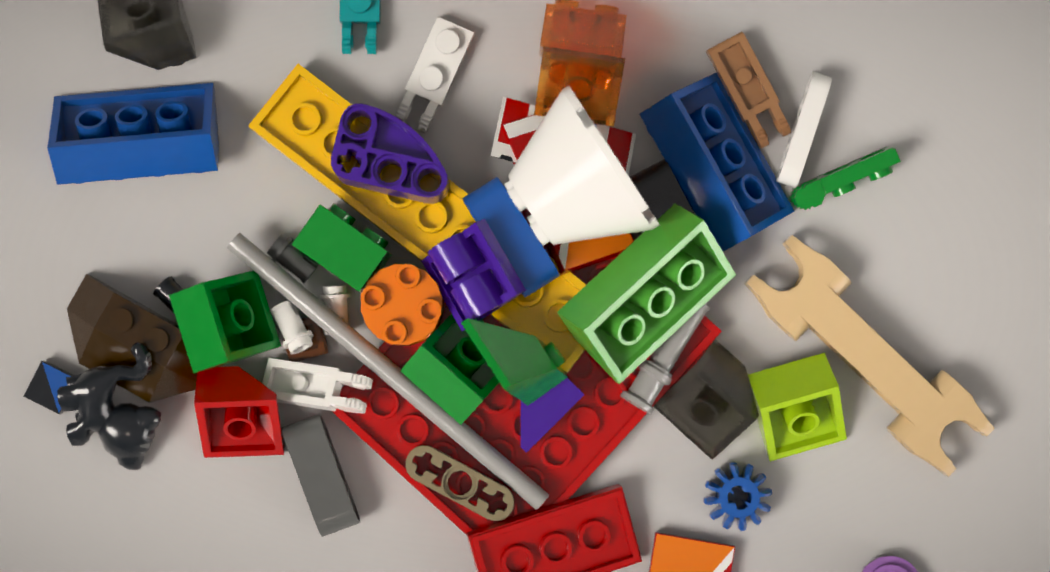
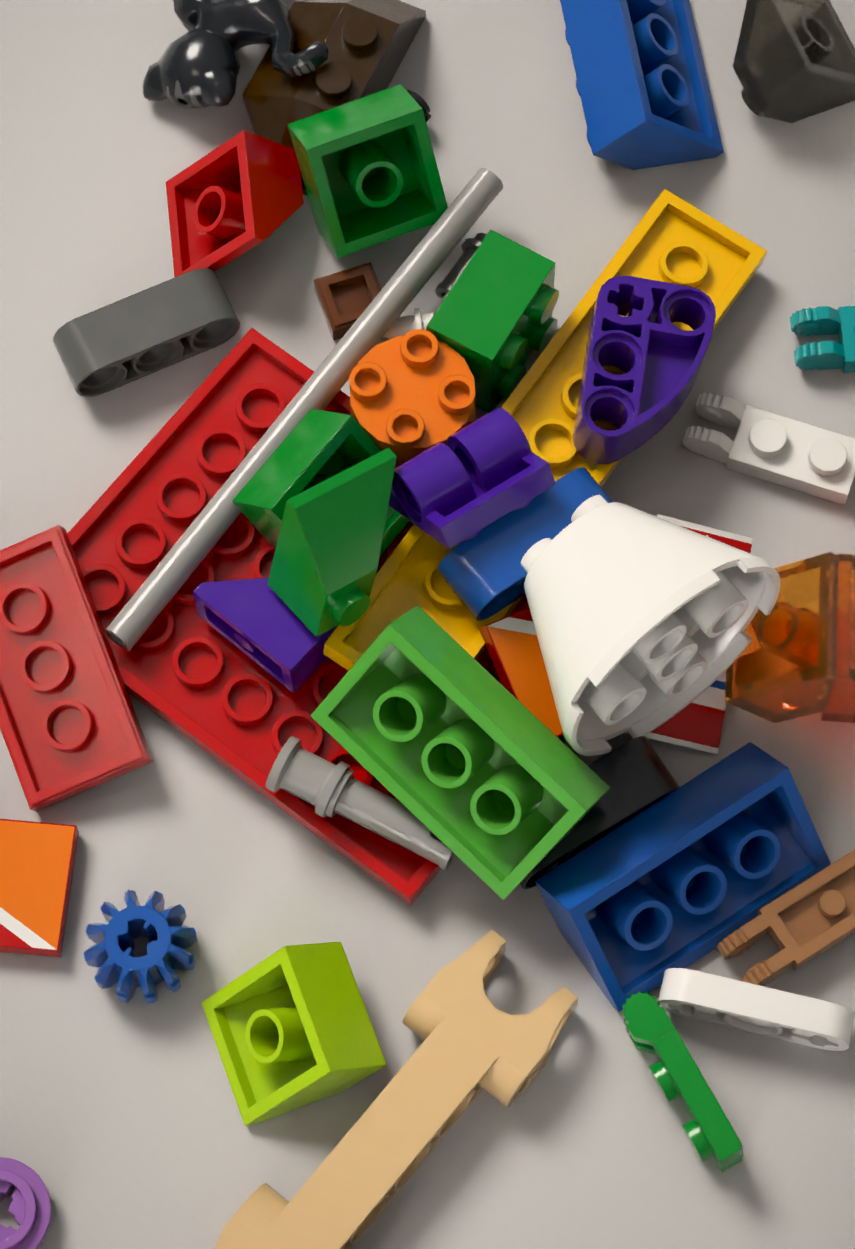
camera: 90 degrees right, 20 degrees down
(292, 327) = (358, 273): white pin -> none
(314, 385) = (280, 303): white hinge -> none
(462, 499) = (146, 471): dark tan beam -> none
(711, 400) = (300, 887): clear smoke slope -> none

